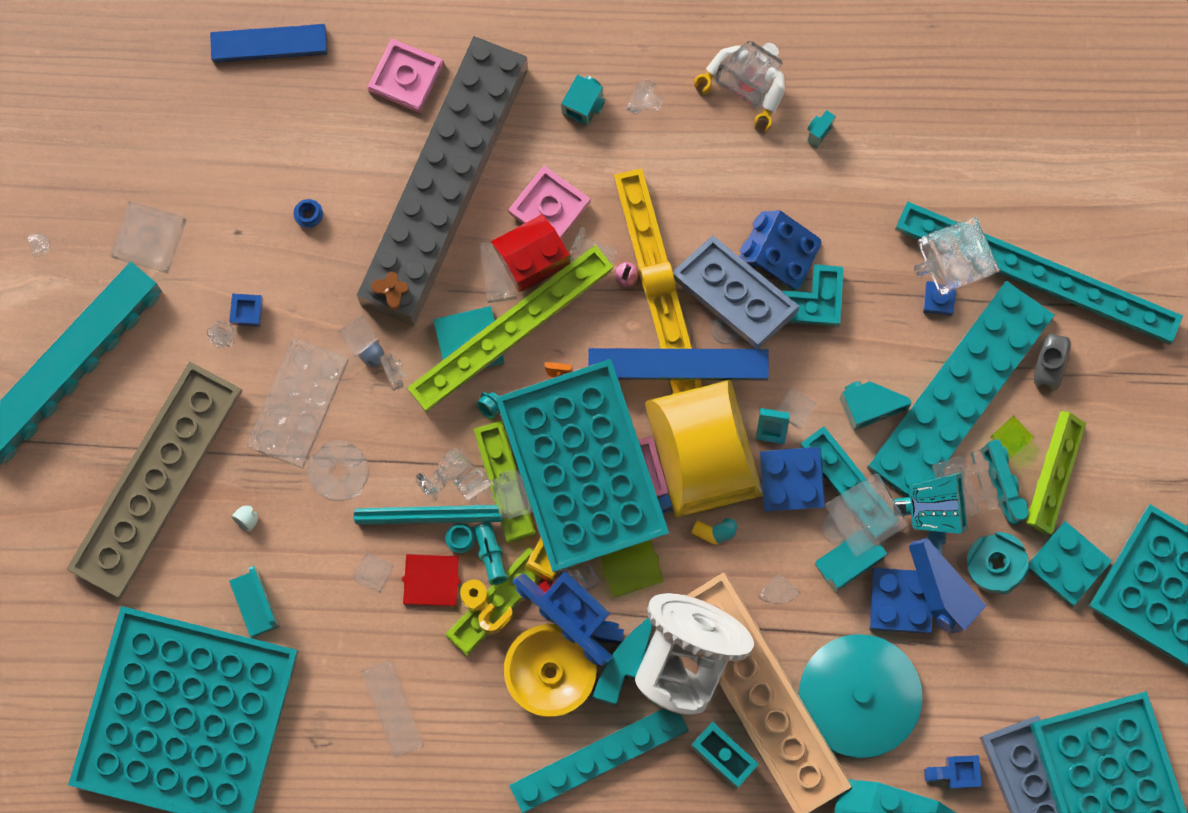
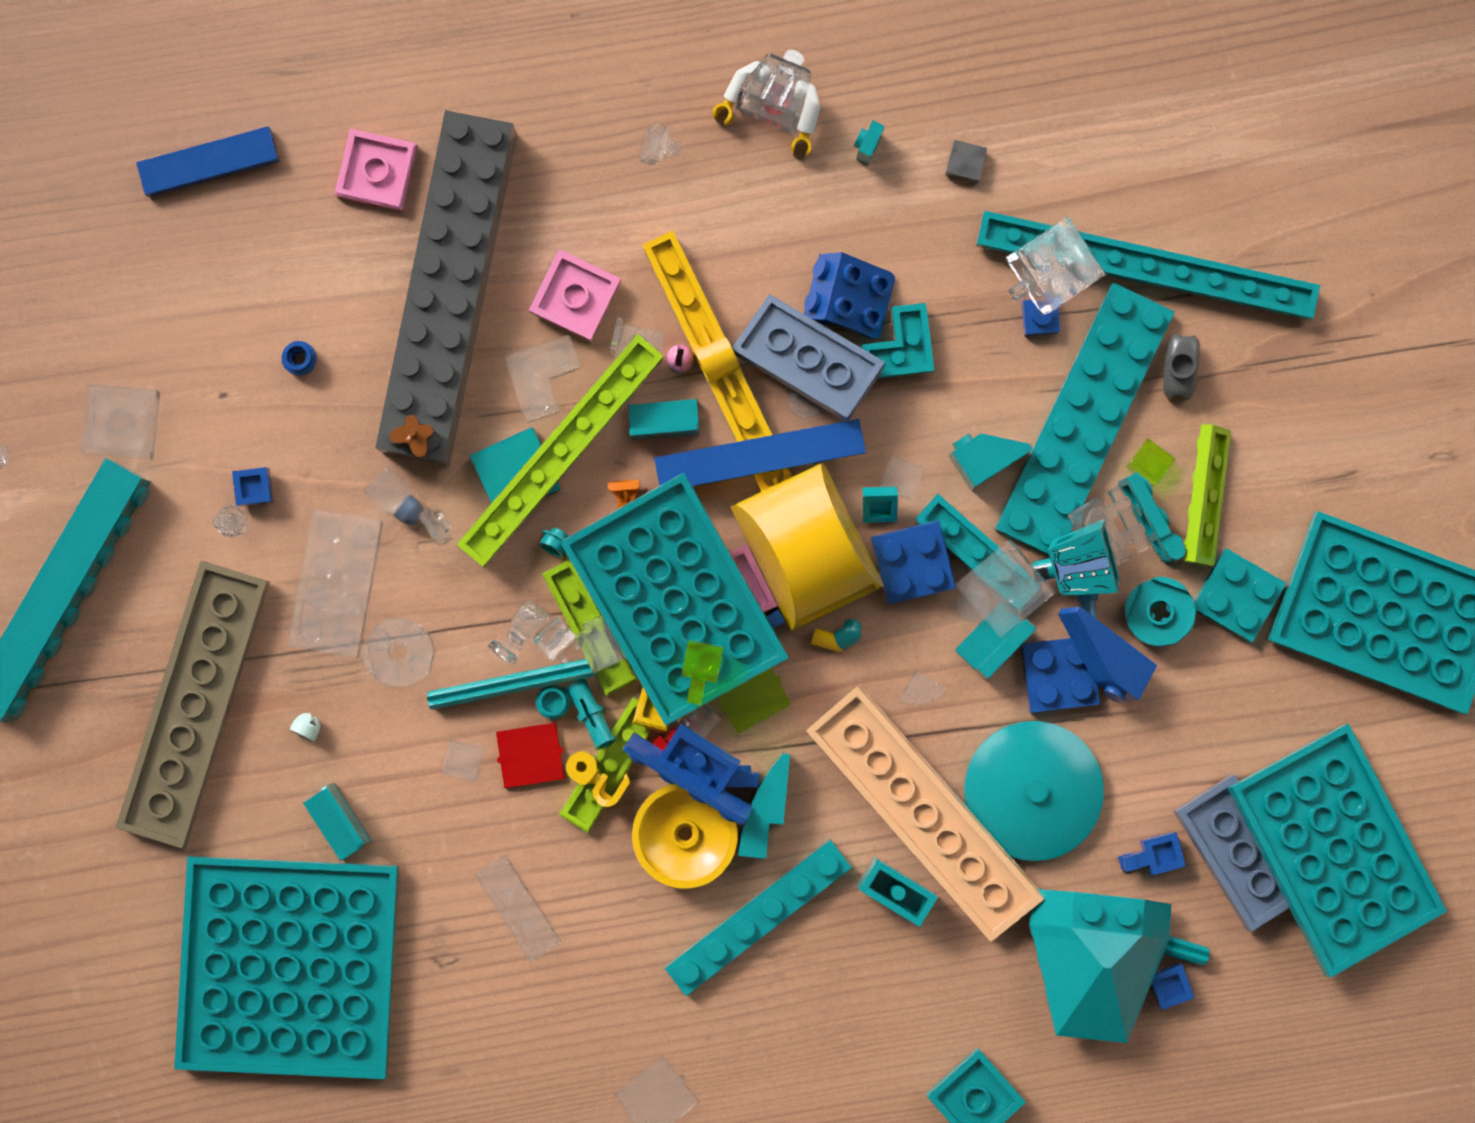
camera: 15 degrees left, 10 degrees up
(531, 252) = (565, 356): red slope -> none
(583, 99) = (589, 160): teal brick -> none
(594, 523) = (702, 665): none -> clear neon green plate
(602, 322) = (663, 419): none -> teal panel
(687, 629) = (838, 787): white piece -> none
(899, 159) = (966, 161): none -> flat silver tile

